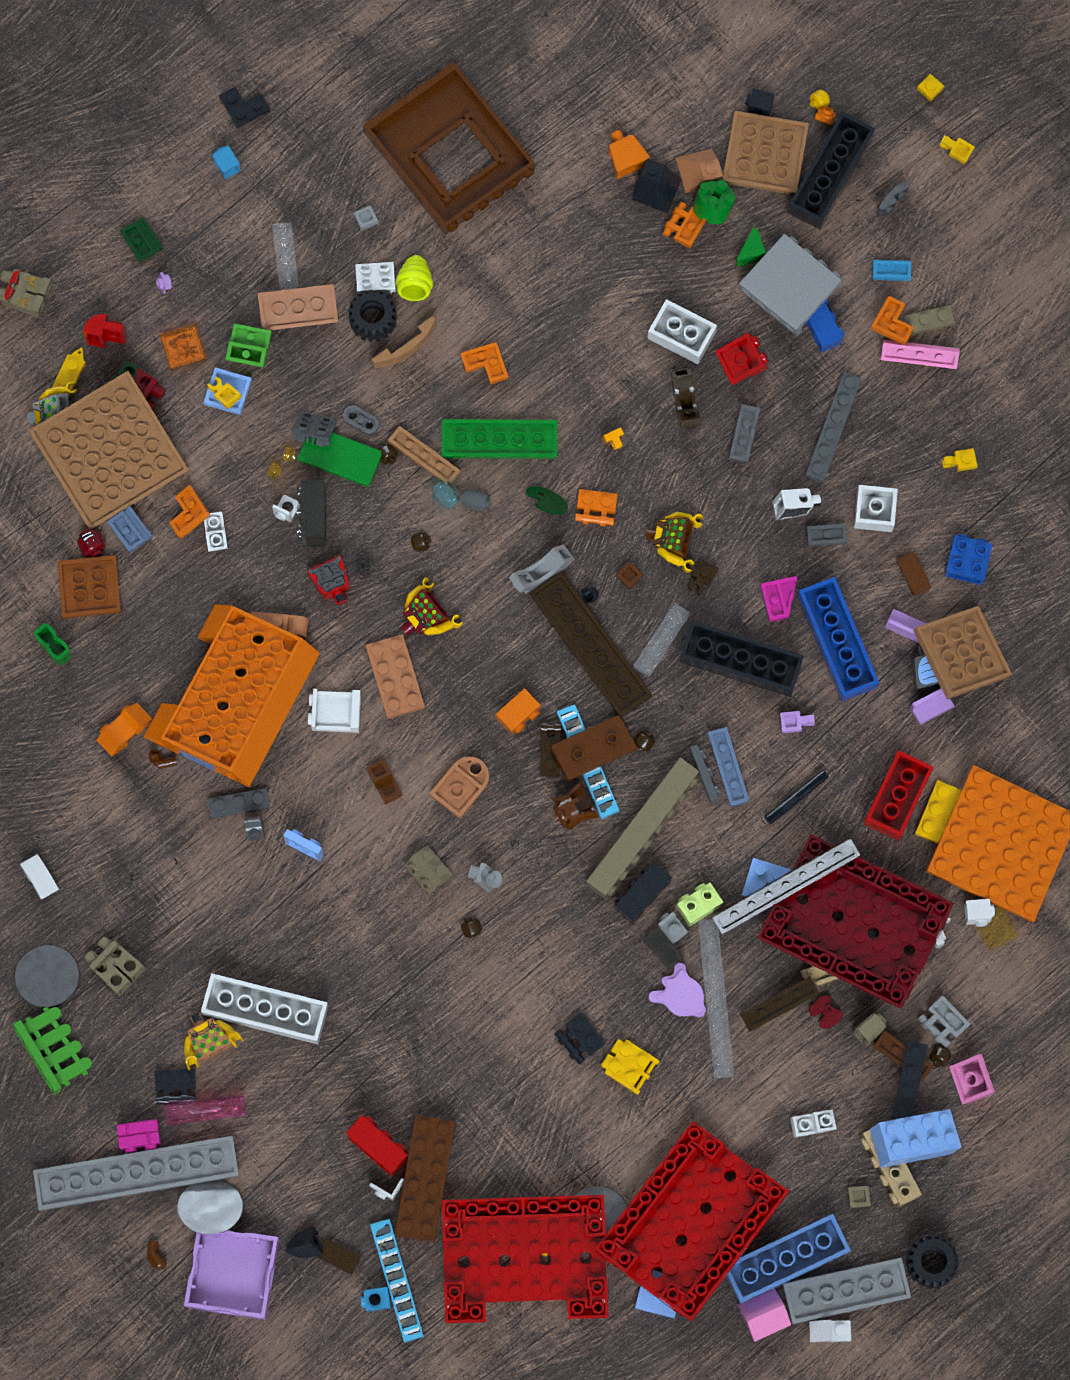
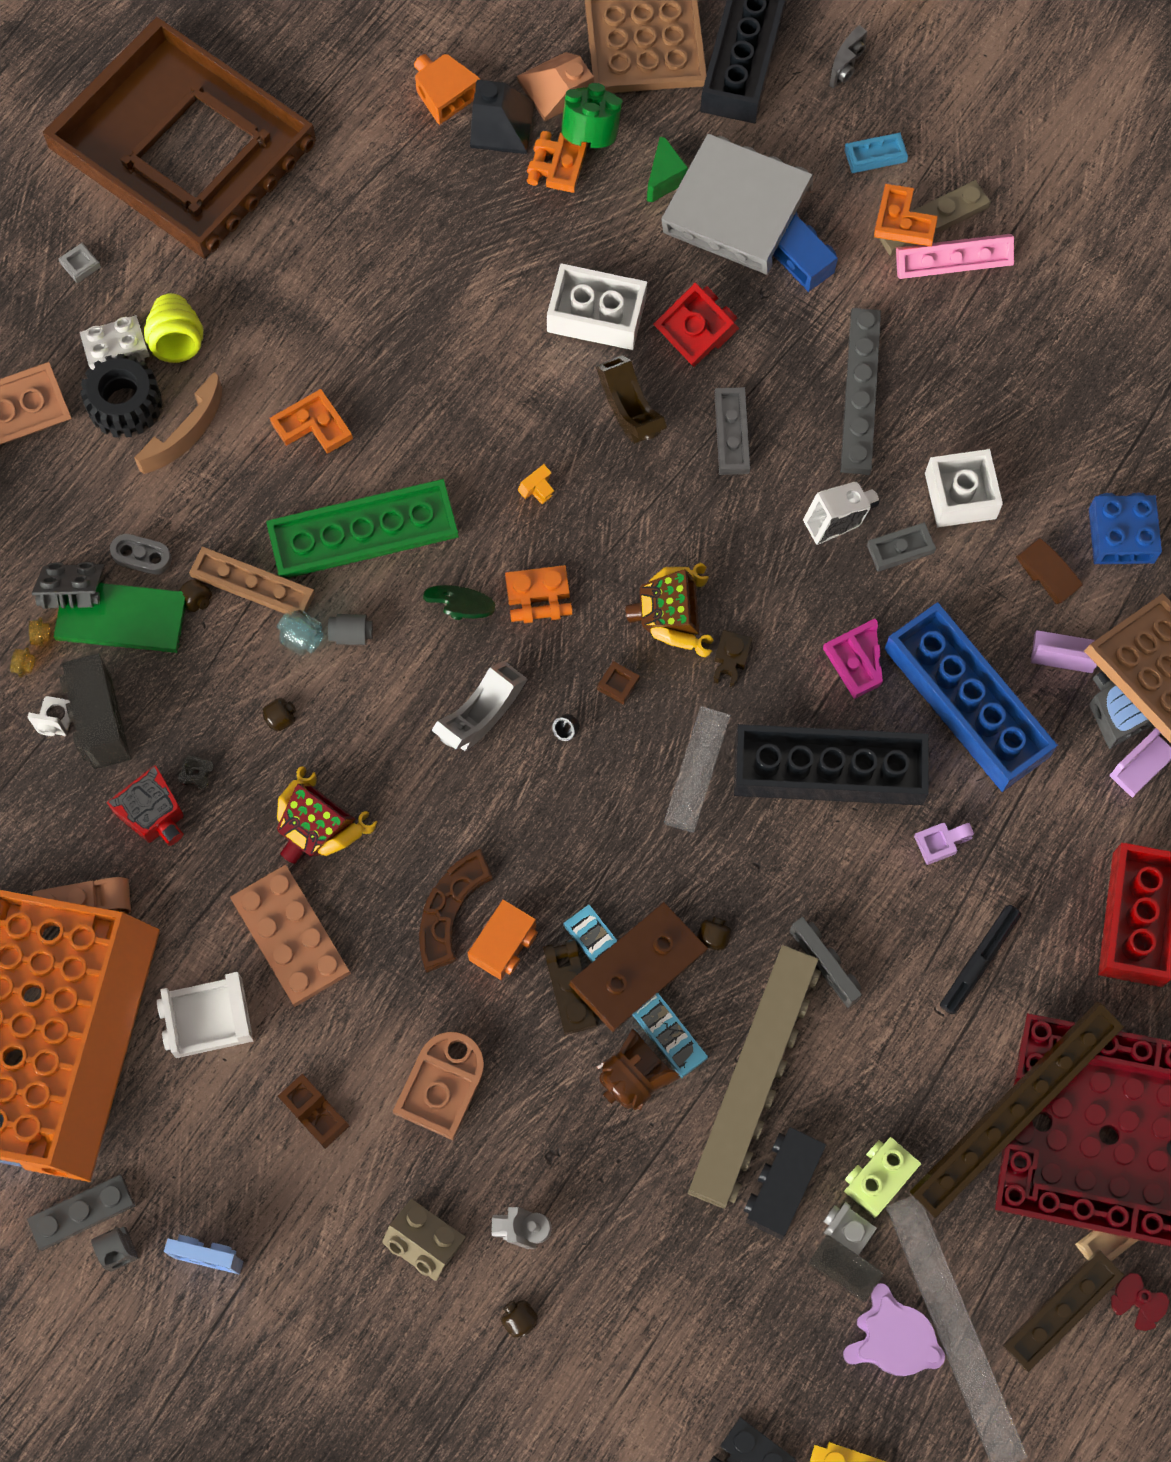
camera: 15 degrees left, 5 degrees down
(489, 682) = (443, 906): none -> reddish brown tile
(590, 644) = (588, 805): dark brown plate -> none
(728, 767) = (860, 940): sand blue plate -> none
(762, 874) = (963, 1100): light blue plate -> none
(962, 460) = (1065, 389): yellow plate -> none

